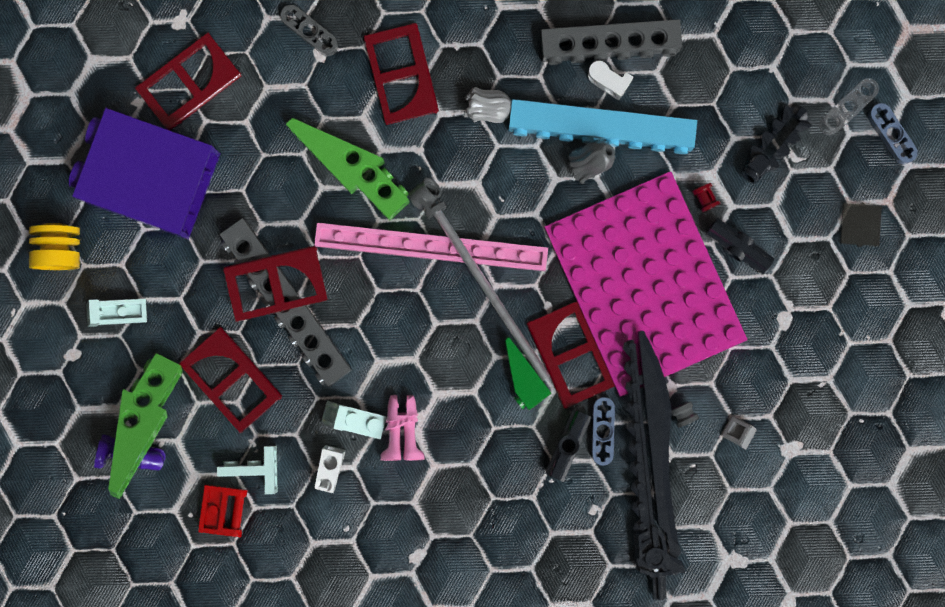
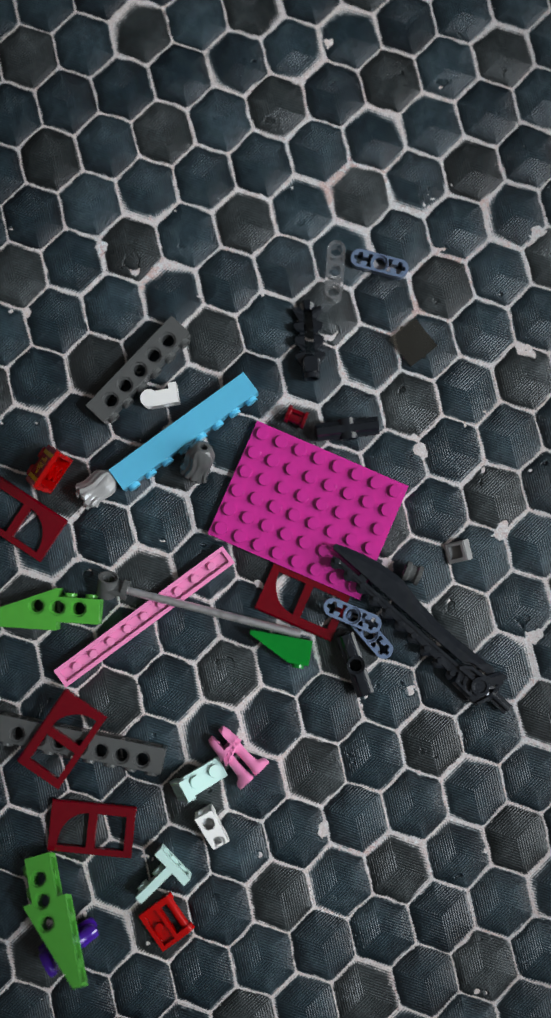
camera: 40 degrees left, 0 degrees up
(464, 54) = (48, 469): none -> red slope
(604, 421) = (335, 614): none -> sand blue beam

